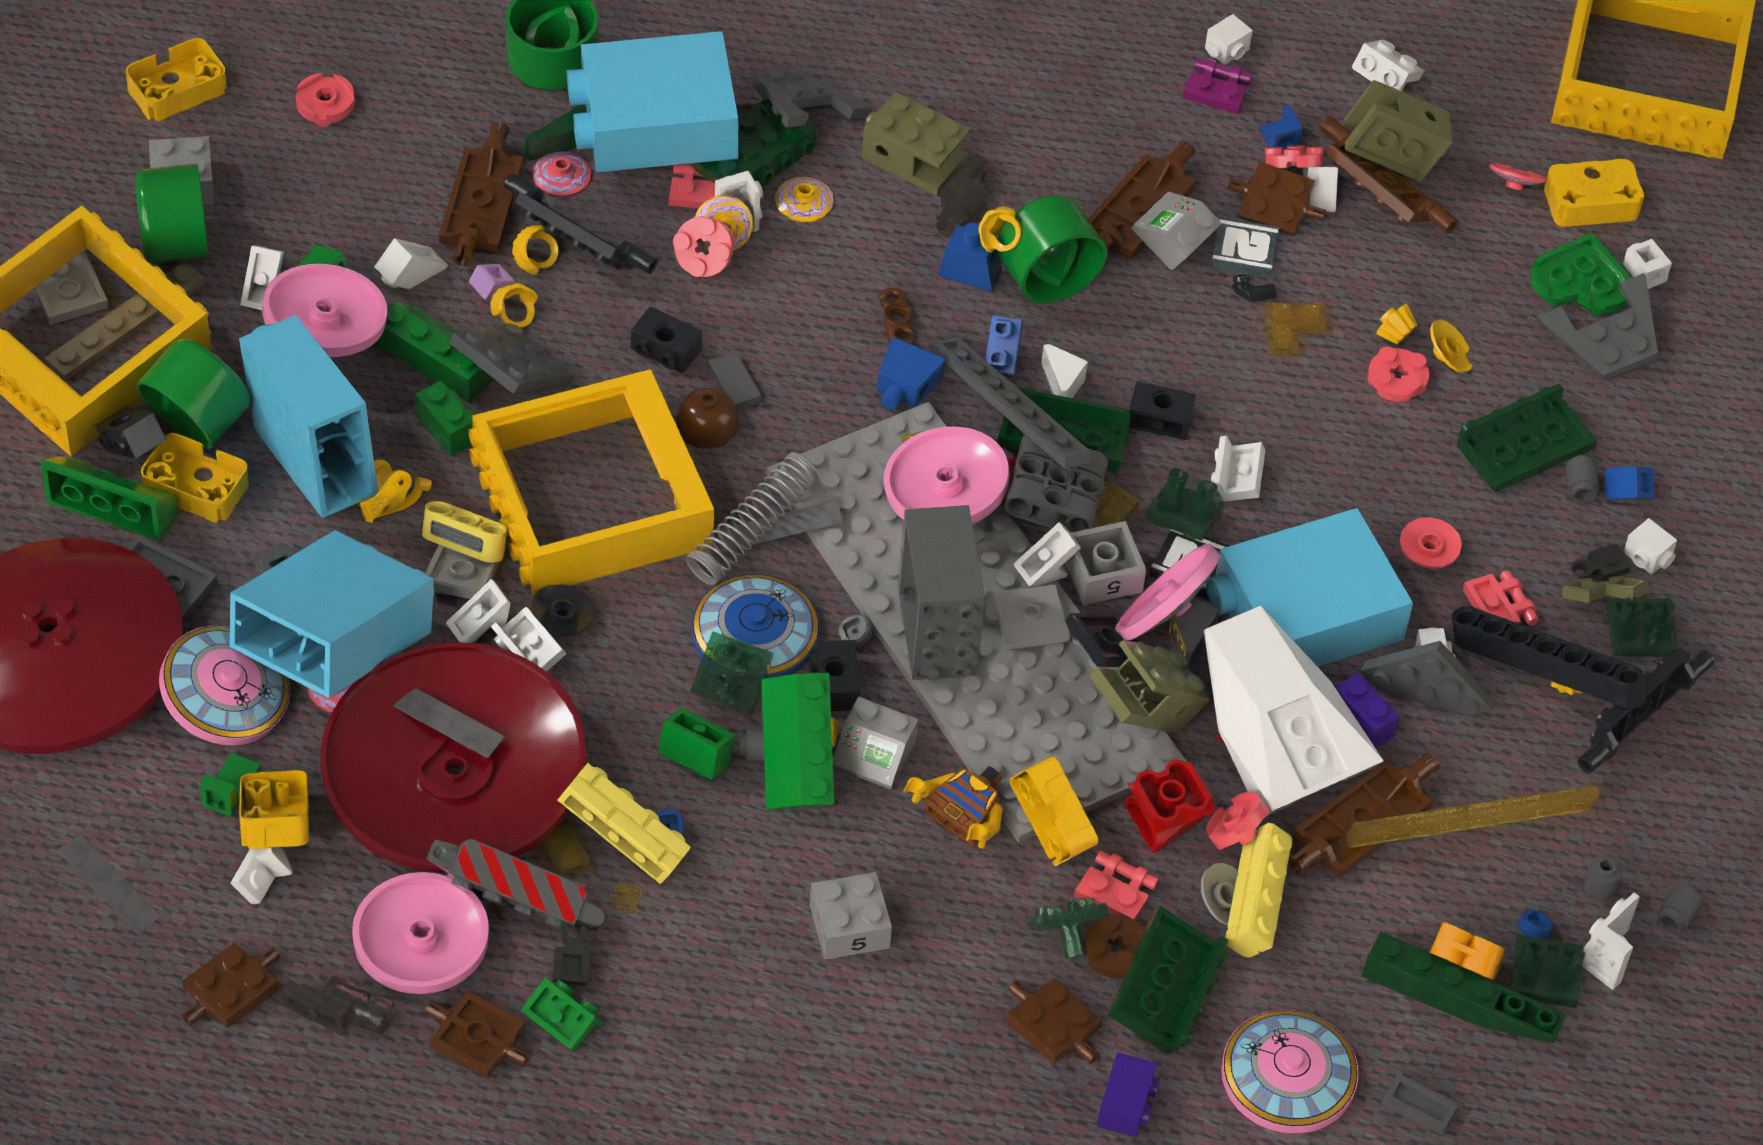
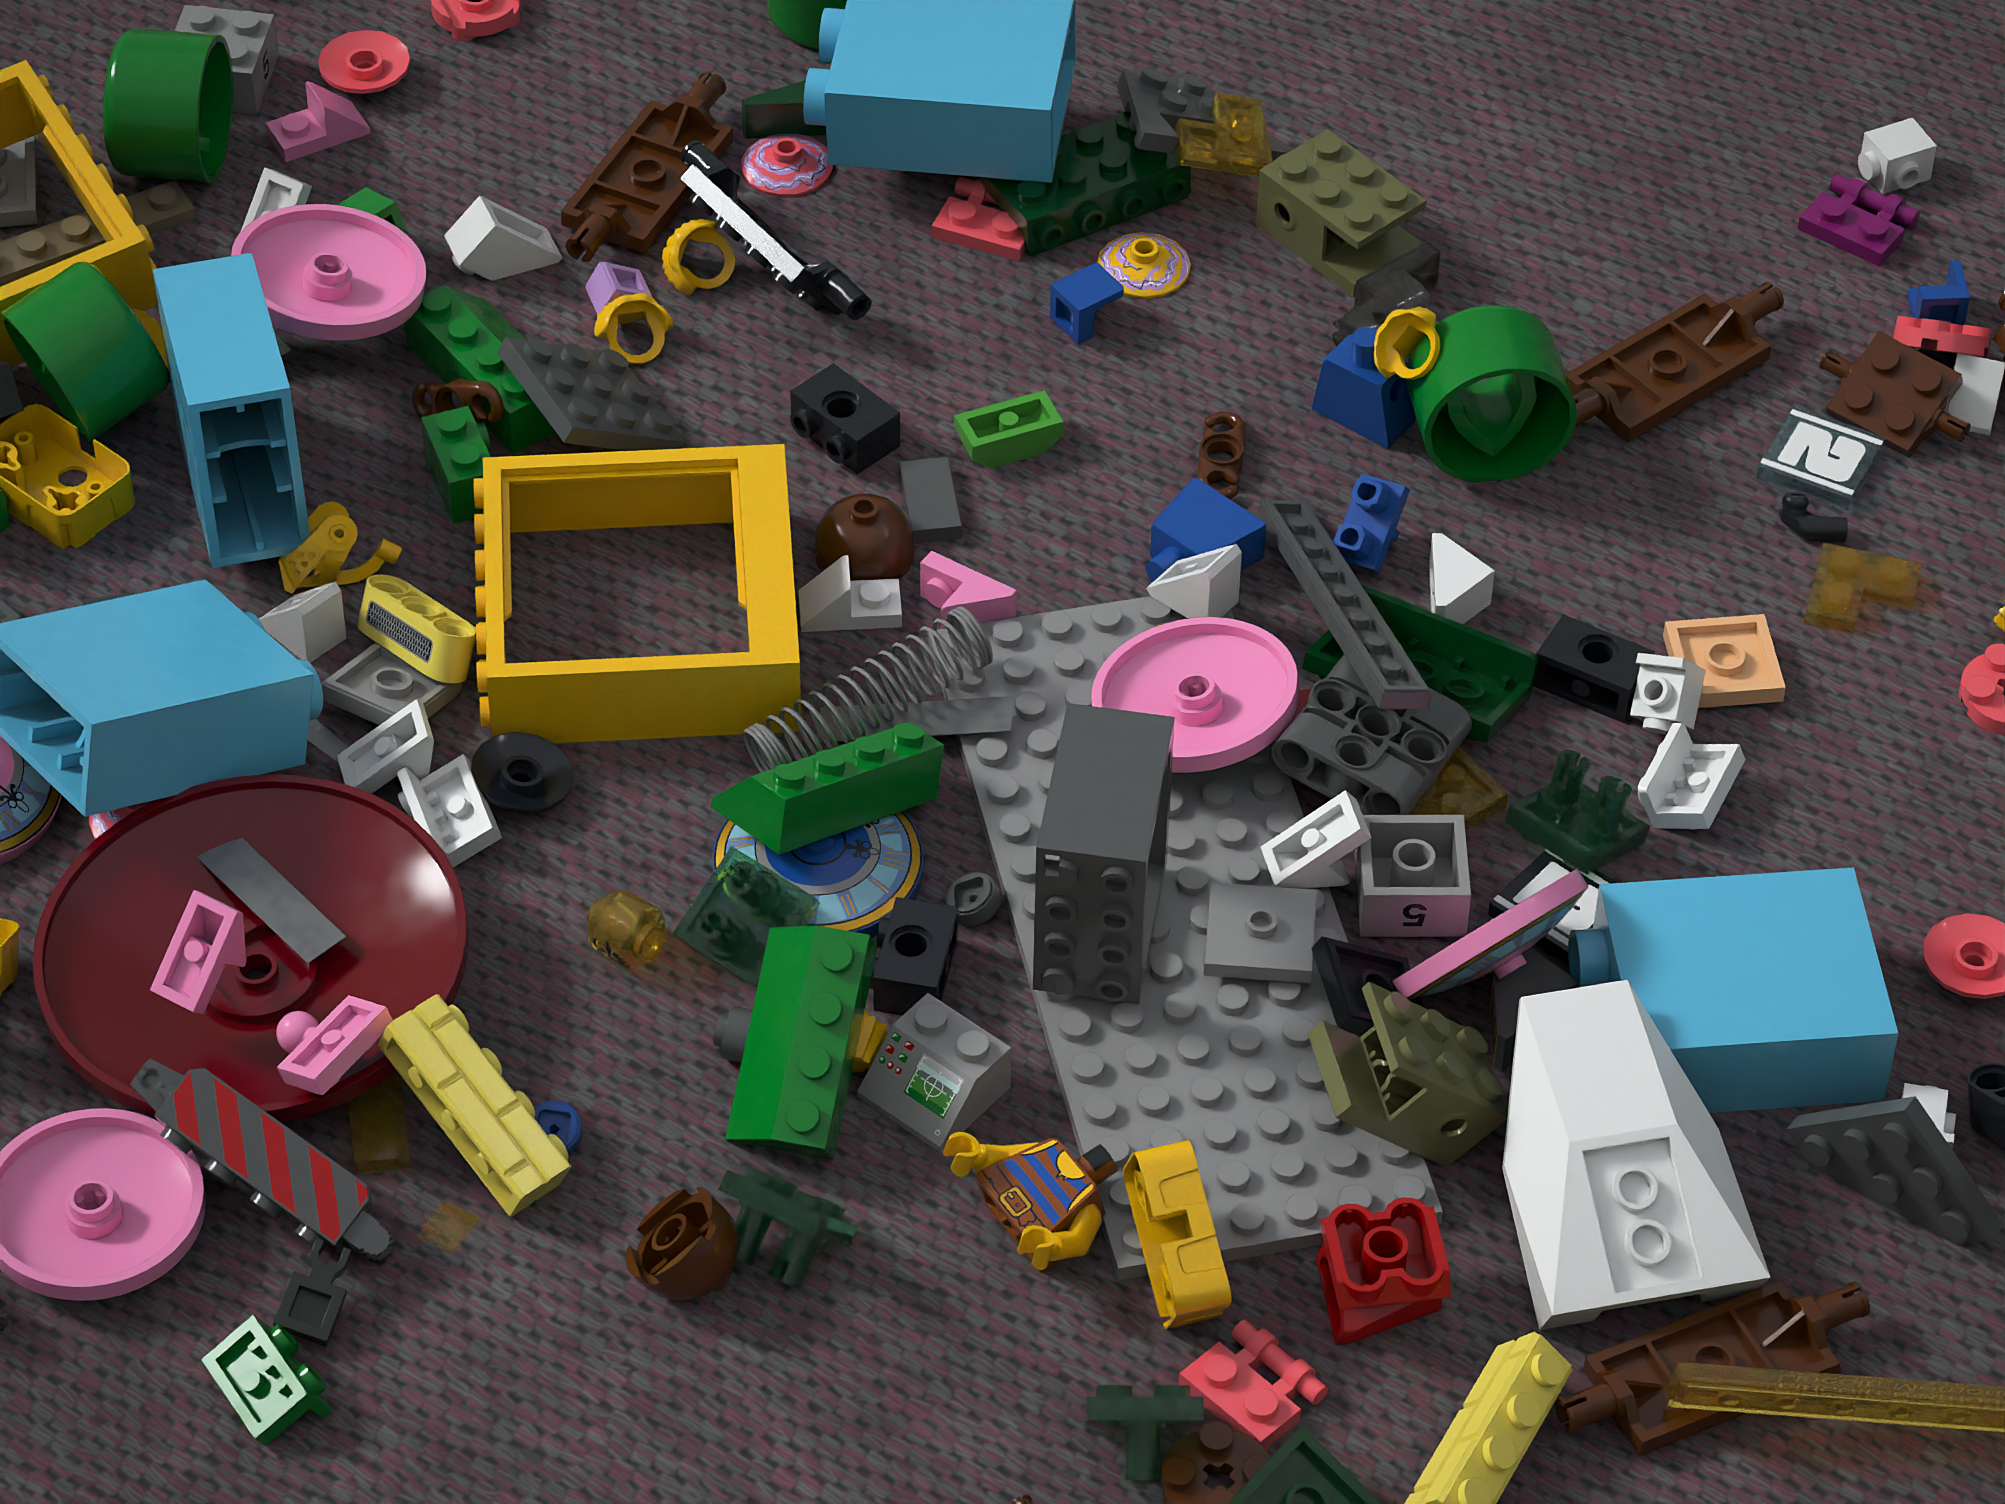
camera: 20 degrees right, 5 degrees down
(260, 204) = (323, 124): none -> bright pink slope
(272, 155) = (364, 61): none -> coral dish
(393, 537) = (308, 621): none -> white slope
(434, 767) = (201, 946): none -> bright pink slope
(438, 371) = (468, 392): none -> reddish brown piece
(477, 1034) = (118, 1381): reddish brown plate -> none
(534, 807) = (328, 1049): none -> bright pink plate
(663, 693) = (626, 928): none -> clear yellow head
(687, 243) = (928, 291): coral plate -> none
(696, 743) = (645, 1012): green brick -> none
(716, 458) = (841, 604): none -> white slope
(730, 211) = (1000, 248): dish -> none
(744, 188) = (1027, 240): white bracket -> none
(757, 581) = (836, 788): none -> green slope
(767, 326) = (1010, 429): none -> bright green slope
(774, 879) = (685, 1247): none -> reddish brown cylinder
(779, 231) = (1078, 297): none -> blue panel
(780, 438) = (954, 585): none -> bright pink slope
(811, 841) = (807, 1216): none -> clear green plate
(836, 110) = (1231, 144): none -> clear yellow plate
(850, 915) = (788, 1330): light grey brick -> none
(920, 406) = (1201, 583): none -> white slope
(1175, 227) = (1712, 406): light grey slope -> none
(1218, 890) = (1413, 1414): light grey dish -> none
(1219, 412) = (1666, 692): none -> white brick
(1232, 390) = (1736, 658): none -> light nougat plate
(1238, 821) = (1487, 1324): coral plate -> none
(1369, 709) = (1775, 1195): dark purple brick -> none

